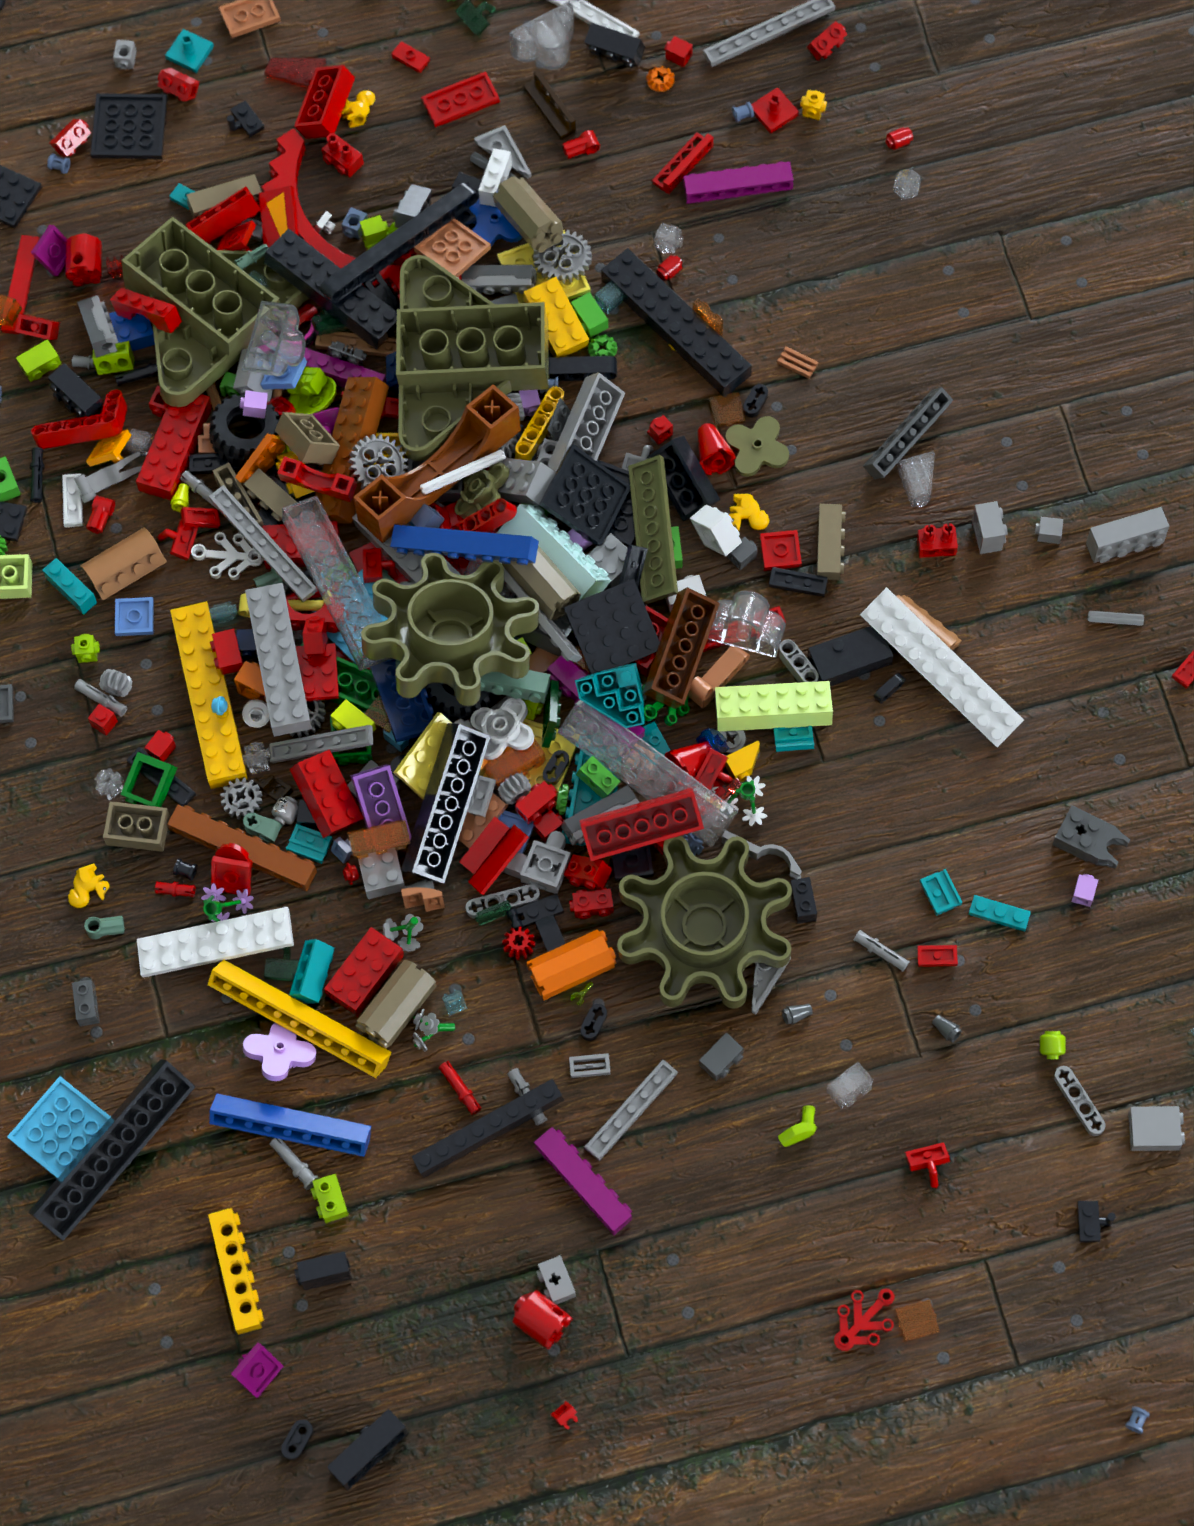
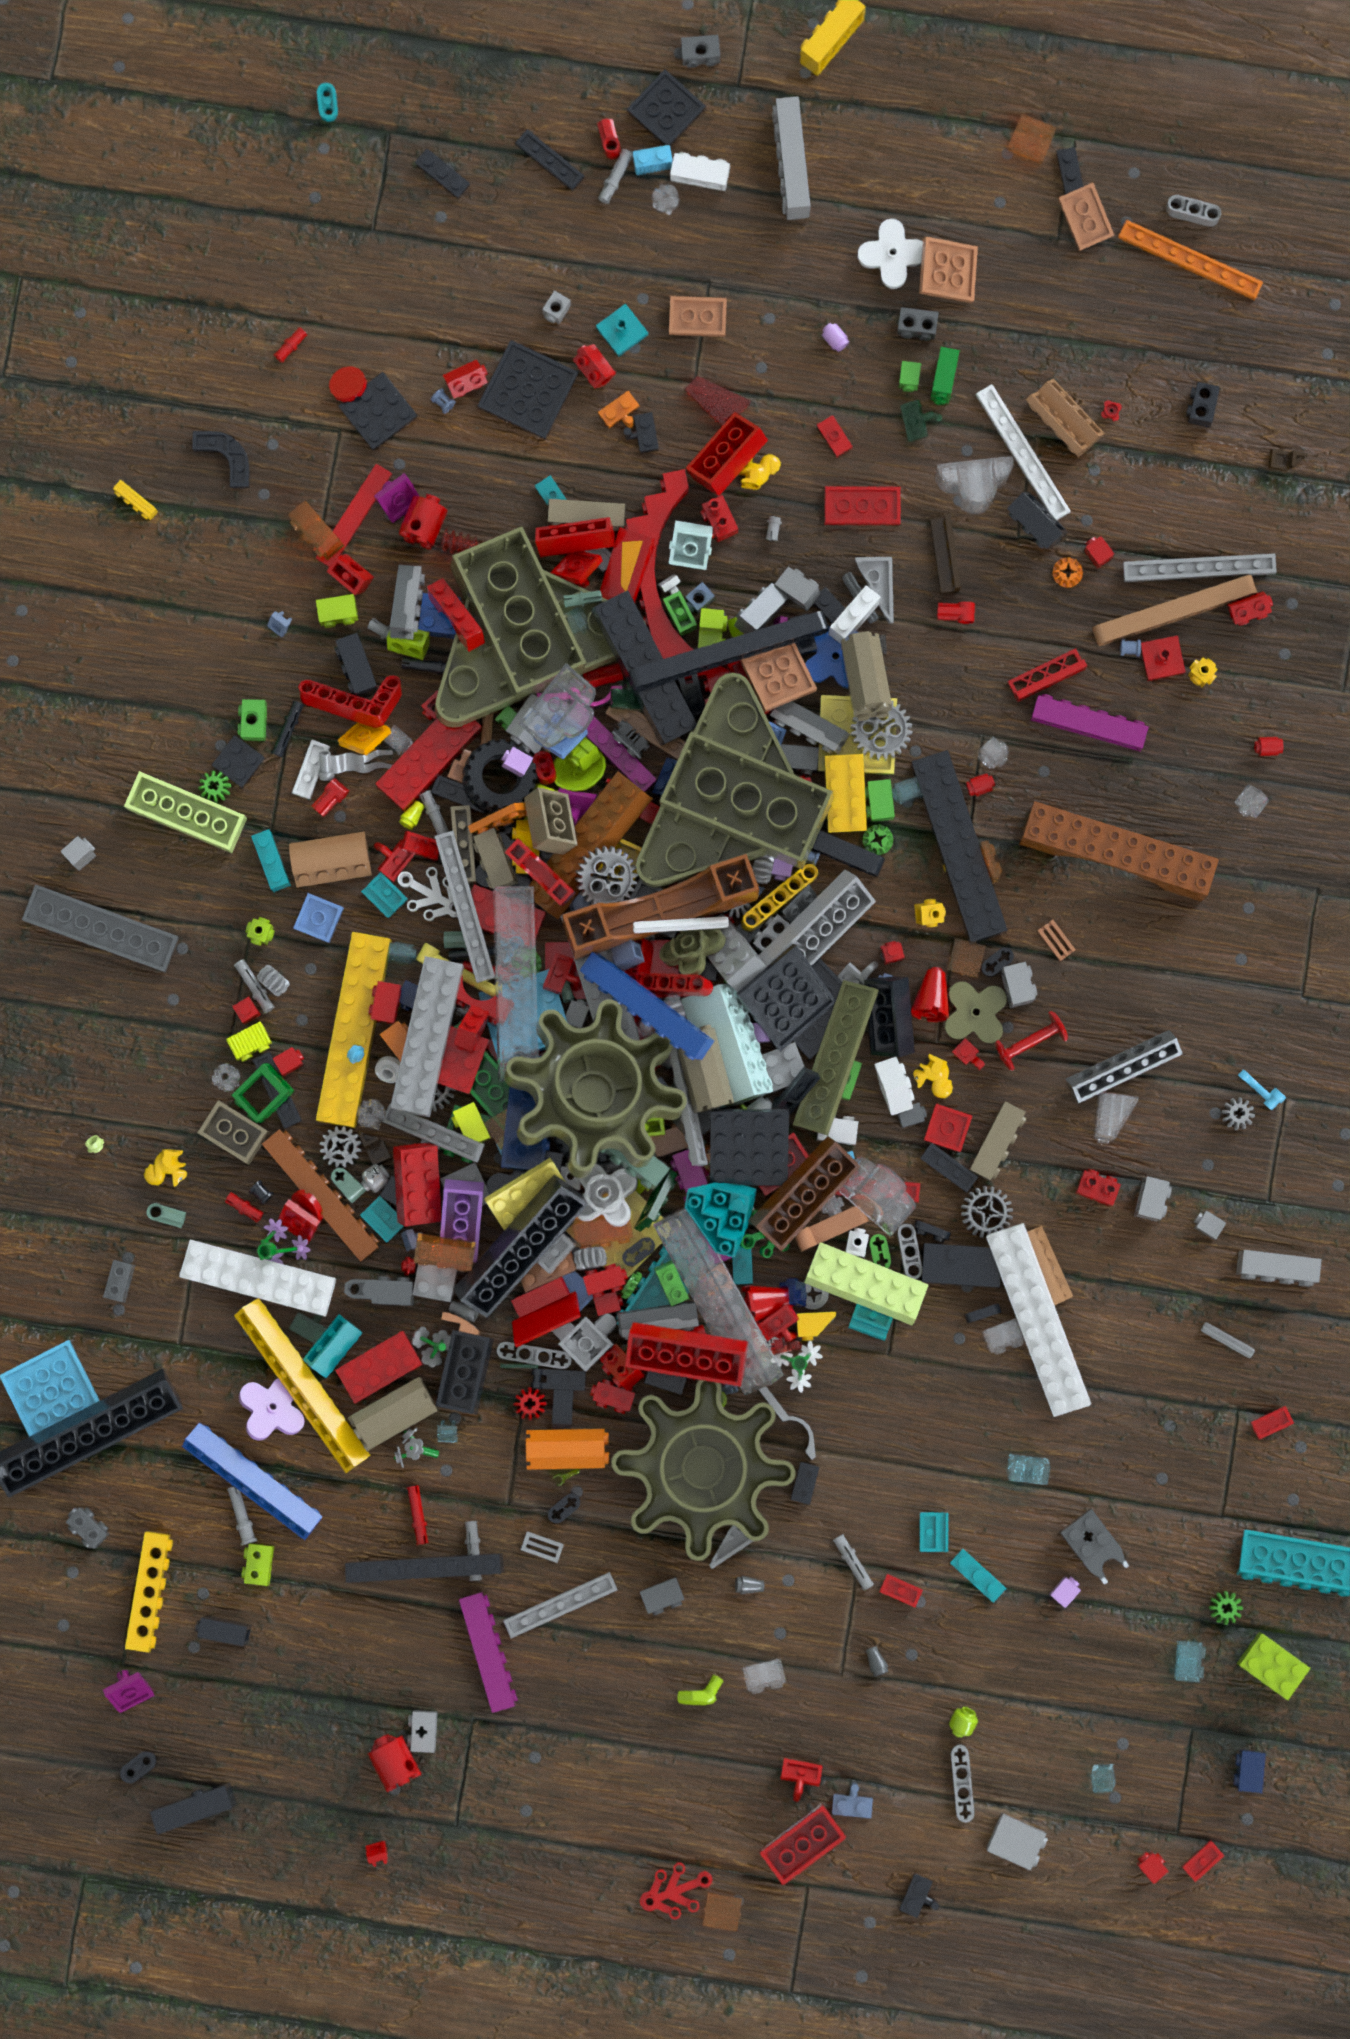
camera: 25 degrees right, 15 degrees up
(10, 894) = (94, 1144): none -> yellowish green plate
(117, 745) = (249, 1041): none -> neon yellow brick
(147, 1236) = (83, 1523): none -> dark grey brick
(186, 573) = (384, 895): none -> teal plate
(216, 110) = (619, 410): none -> orange plate
(327, 182) = (690, 545): none -> light aqua brick
(336, 902) = (383, 1291): none -> dark grey brick
(343, 239) = (679, 614): none -> bright green brick
(391, 142) = (773, 528): none -> light grey pin
(439, 179) = (798, 588): none -> light grey brick
(445, 940) = (464, 1372): none -> black brick
(676, 383) = (929, 913): none -> yellow brick
(710, 655) = (833, 1206): none -> clear gear
(745, 670) = (853, 1249): none -> white brick
(758, 269) = (1087, 839): none -> dark orange arch
(763, 70) = (1174, 610): none -> medium nougat beam
(767, 483) = (967, 1053): none -> red plate
(776, 675) = (885, 1250): none -> bright green beam
(783, 405) = (1018, 984): none -> light grey brick
(805, 639) = (924, 1228): none -> black plate
(833, 426) = (1032, 1040): none -> red hose
(836, 607) = (990, 1195): none -> light grey gear
(917, 699) = (1003, 1336): none -> clear brick
(961, 1219) = (802, 1844): none -> red brick
(988, 1166) = (852, 1804): none -> sand blue plate
(997, 798) = (1028, 1469): none -> clear light blue brick
(1021, 426) = (1242, 1119): none -> light grey gear
(1049, 408) = (1271, 1099): none -> medium azure brick

